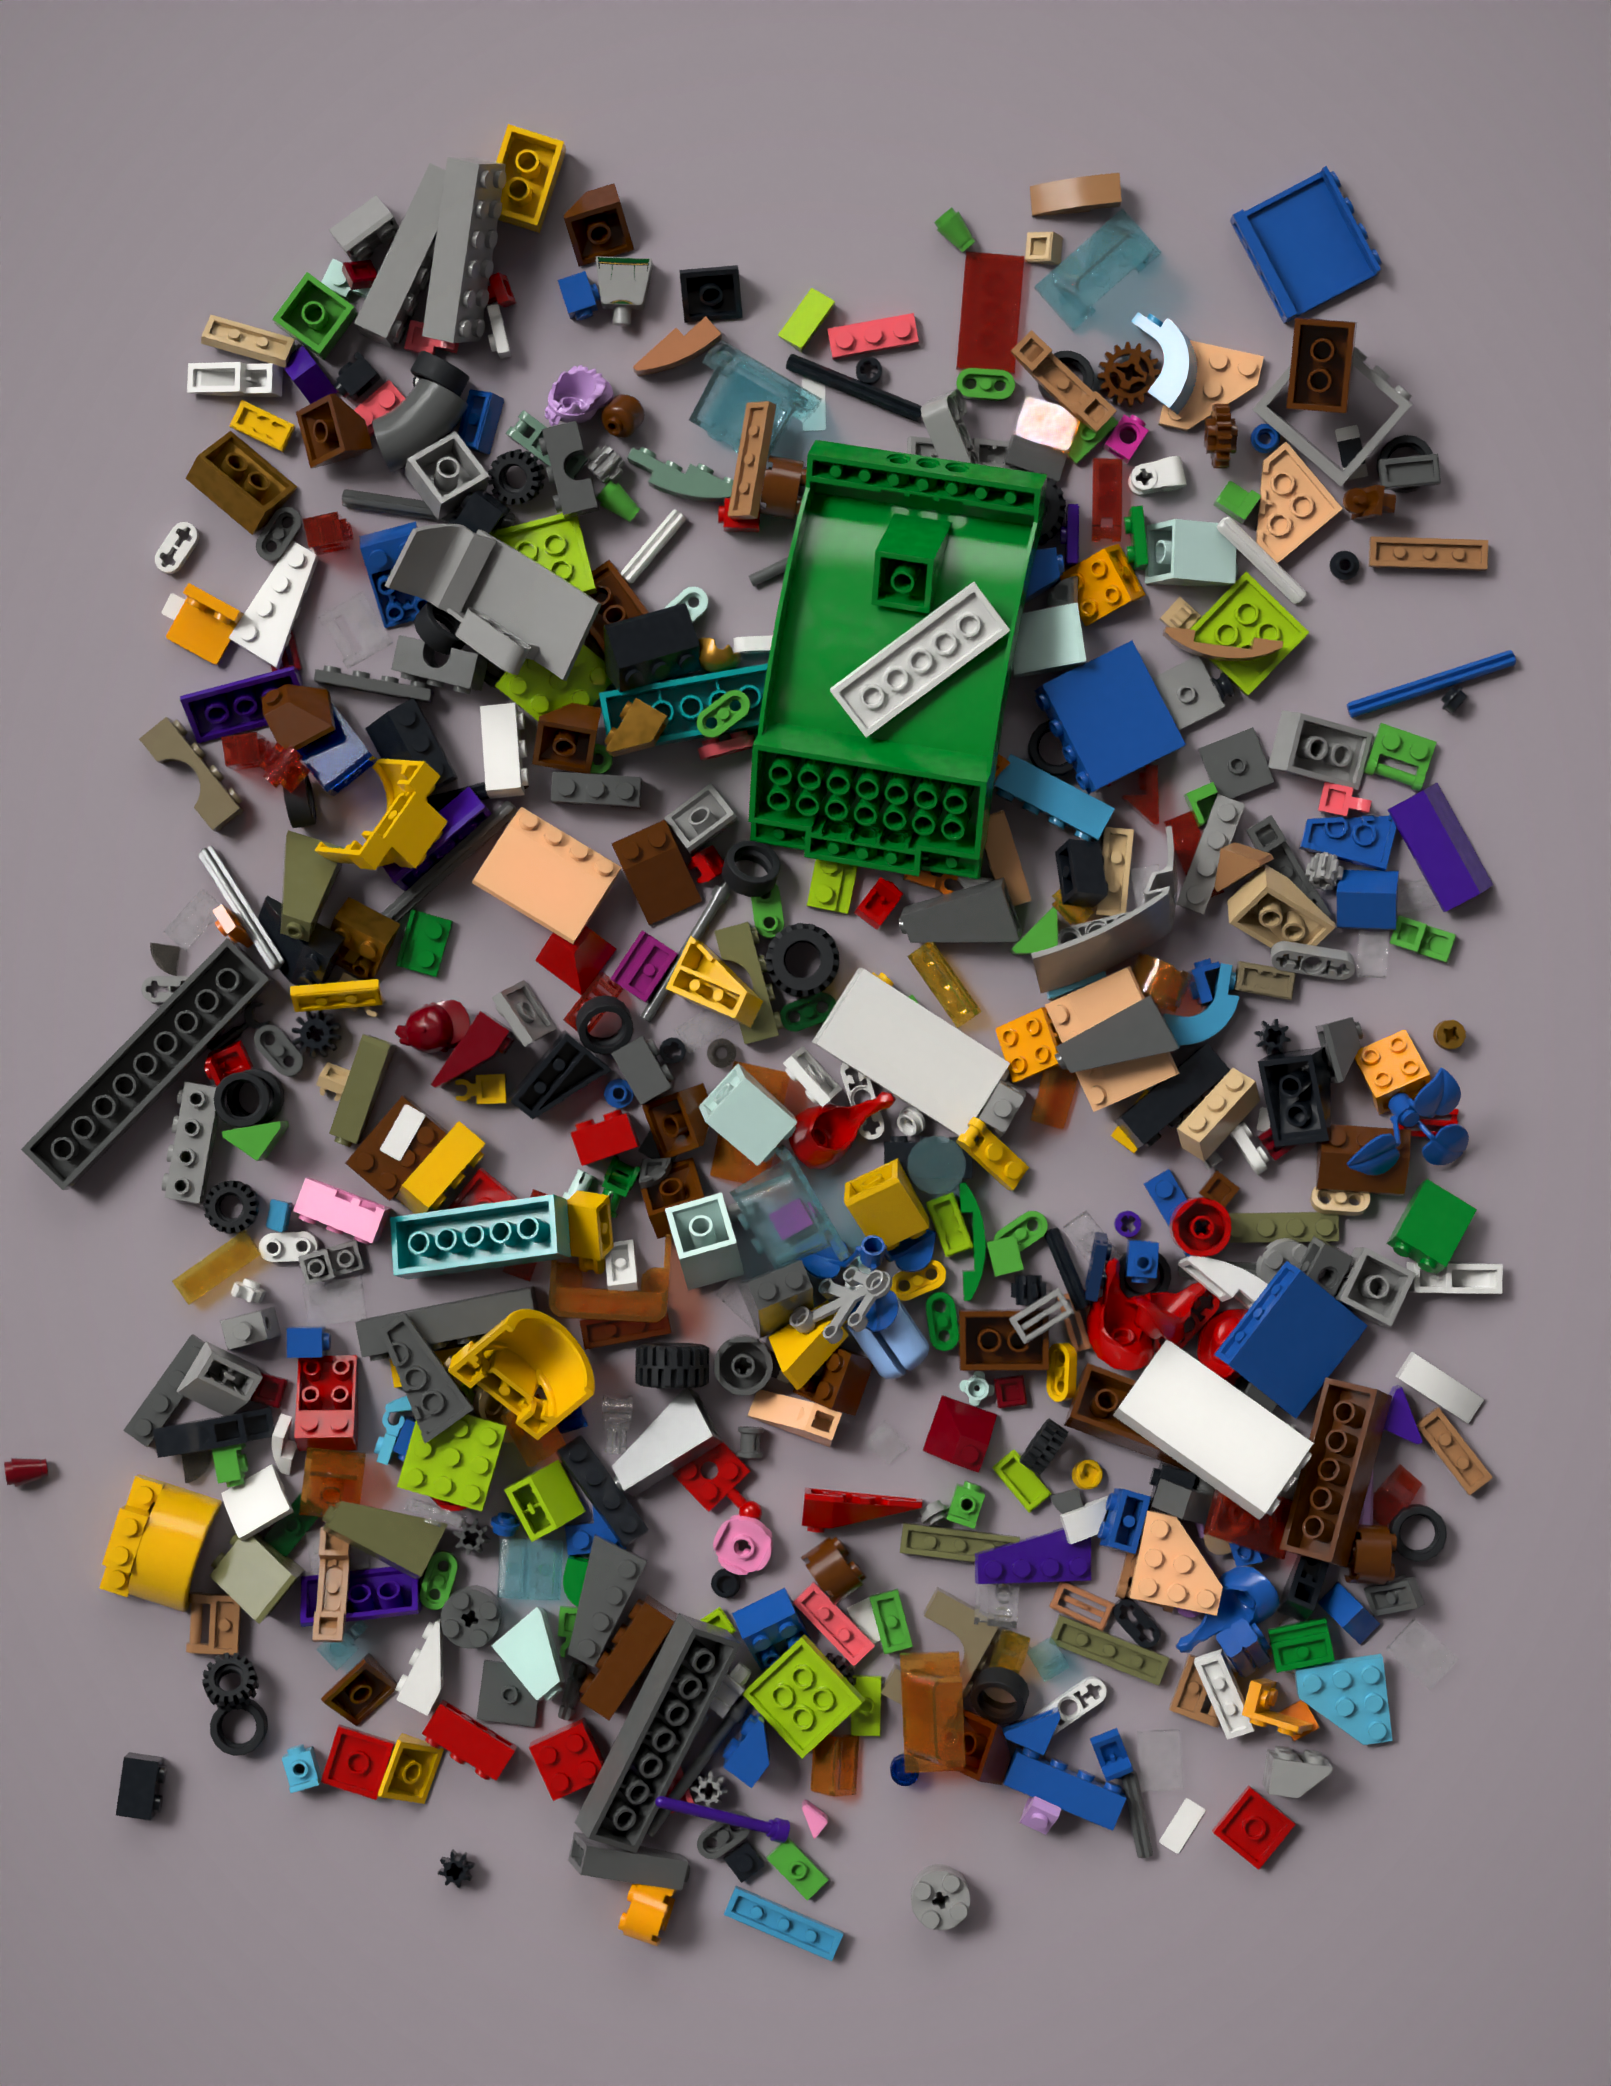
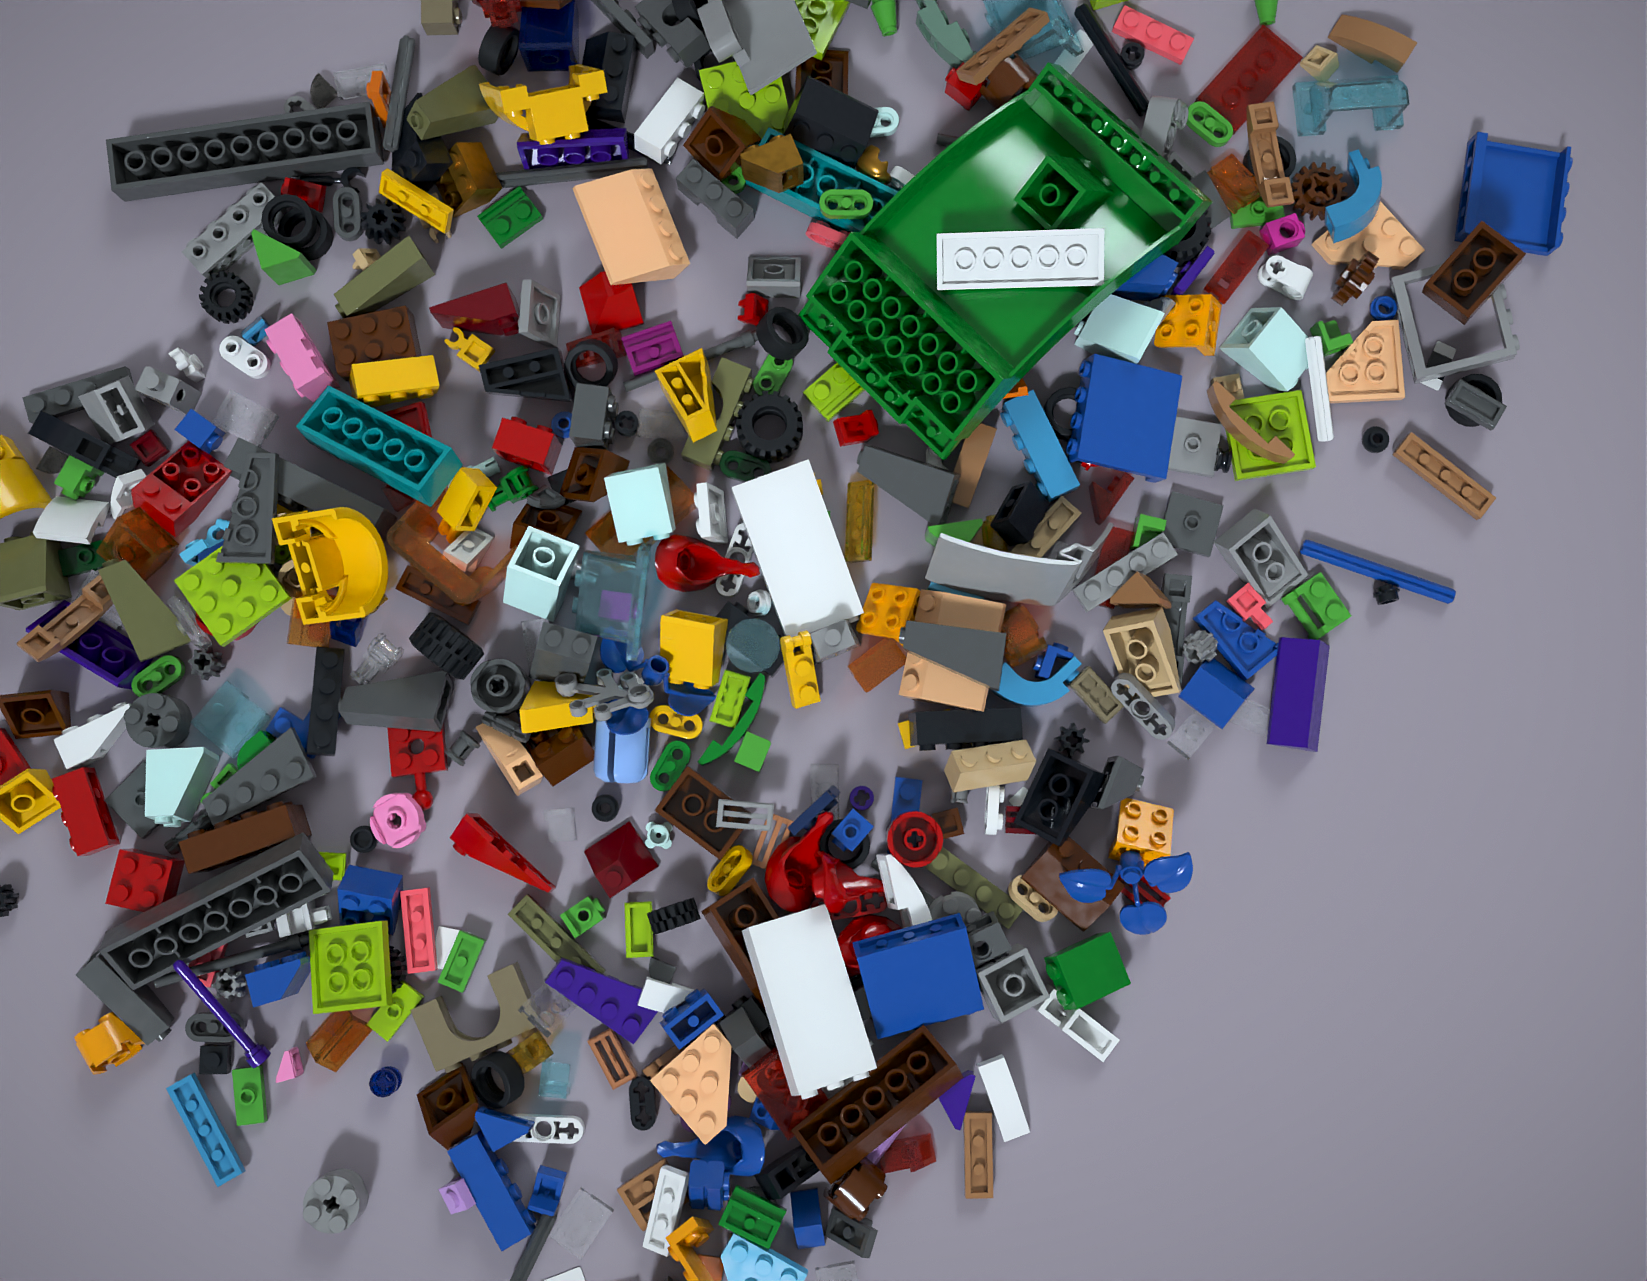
camera: 40 degrees right, 5 degrees down
(216, 1267) = (181, 332): clear yellow plate -> none
(331, 1262) = (264, 389): light grey slope -> none
(339, 1652) = (51, 671): clear light blue plate -> none
(402, 1132) = (384, 330): white sticker -> none
(435, 1027) = (467, 275): dark red hair -> none
(505, 1524) = (237, 672): blue plate -> none
(544, 1500) = (278, 676): lime slope -> none
(653, 546) = (886, 63): white axle -> none
(656, 872) = (713, 287): reddish brown slope -> none
(775, 1395) = (505, 726): none -> dark grey axle
(832, 1570) = (447, 889): reddish brown brick -> none
(912, 1409) = (596, 808): none -> black plate
(931, 881) = (902, 435): orange plate -> none
(932, 1711) = (435, 1053): clear orange windscreen -> none
(933, 1513) = (555, 903): light grey plate -> none
(1010, 1391) = (681, 856): dark red tile -> none
(1019, 1229) = (778, 744): bright green plate -> none
(1028, 1289) = (751, 789): black gear -> none
(1066, 1269) = (791, 797): black axle -> none
(1087, 1474) = (690, 962): yellow tile -> none
(1109, 1650) = (607, 1108): olive plate -> none
(1135, 526) = (1243, 300): green plate -> none
(1368, 502) = (1429, 405): reddish brown hips -> none
(1423, 939) = (1235, 752): bright green slope -> none
(1439, 1527) = (918, 1214): black tyre -> none
(1446, 1038) = (1199, 838): pearl gold wheel -> none

